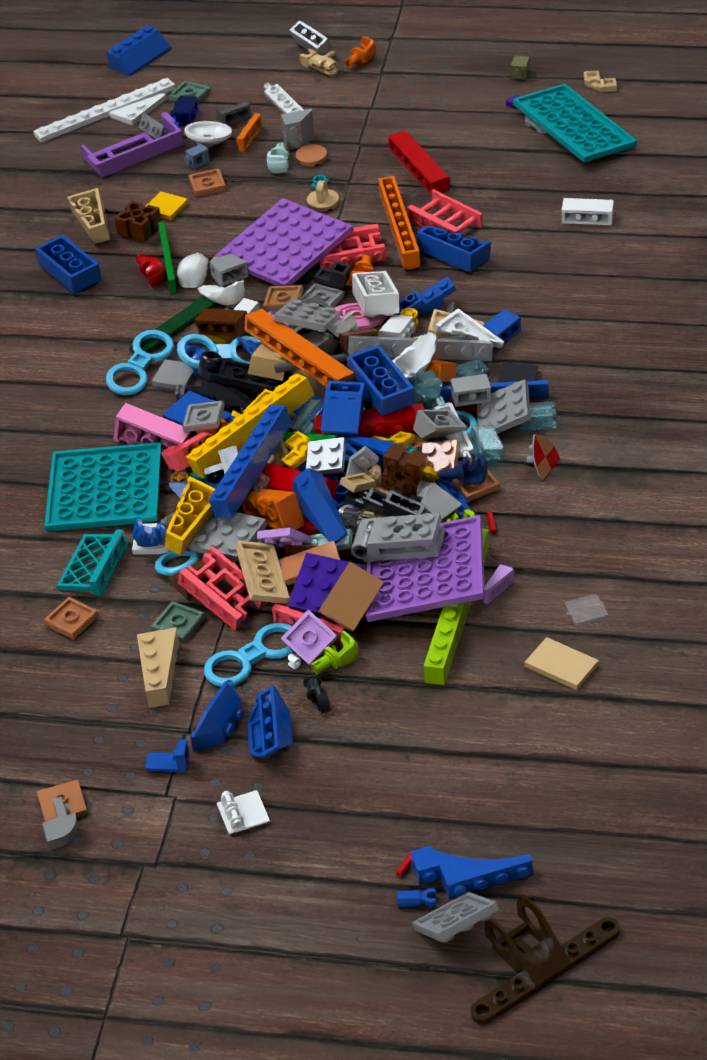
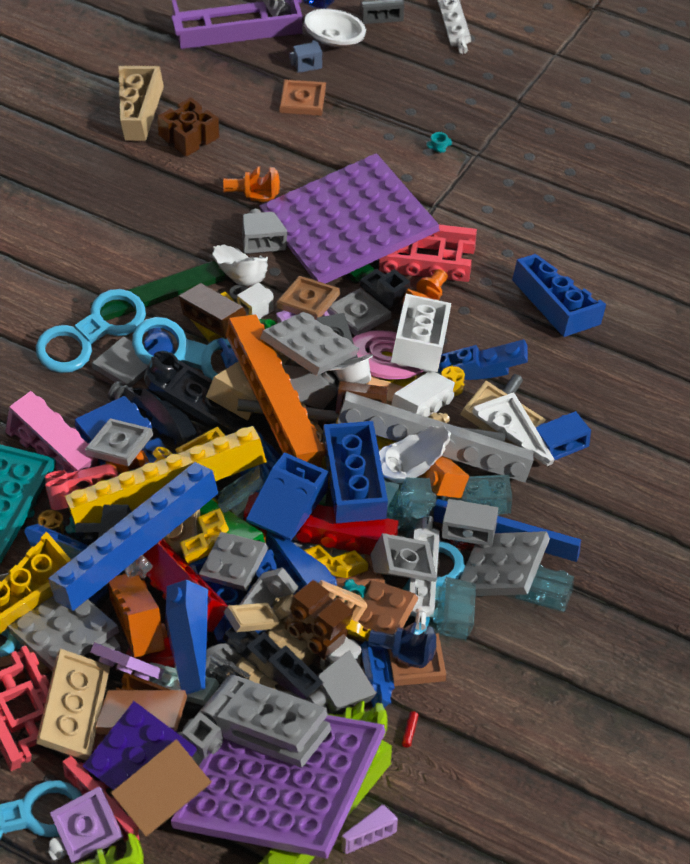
camera: 15 degrees right, 5 degrees up
(68, 264) = (75, 161): blue brick -> none
(152, 269) = (171, 202): red piece -> none
(167, 257) = (199, 190): green tile -> none
(168, 204) = (237, 114): yellow tile -> none
(192, 270) = (221, 218): white hair -> none
(205, 244) = (255, 187): none -> orange piece
(249, 132) = (387, 43): orange plate -> none
(278, 159) = (402, 91): light aqua piece -> none
(297, 128) = (445, 58): light grey slope -> none
(311, 155) = (448, 99): nougat tile -> none
(322, 198) = (431, 167): tan tile -> none
(364, 556) = (203, 735): none -> light grey brick
(399, 223) = (505, 236): orange brick -> none
(418, 162) = (575, 155): red brick -> none
(422, 218) = (550, 252): coral fence -> none
(517, 372) = (551, 513): black tile -> none
(544, 455) = (521, 654): shield -> none

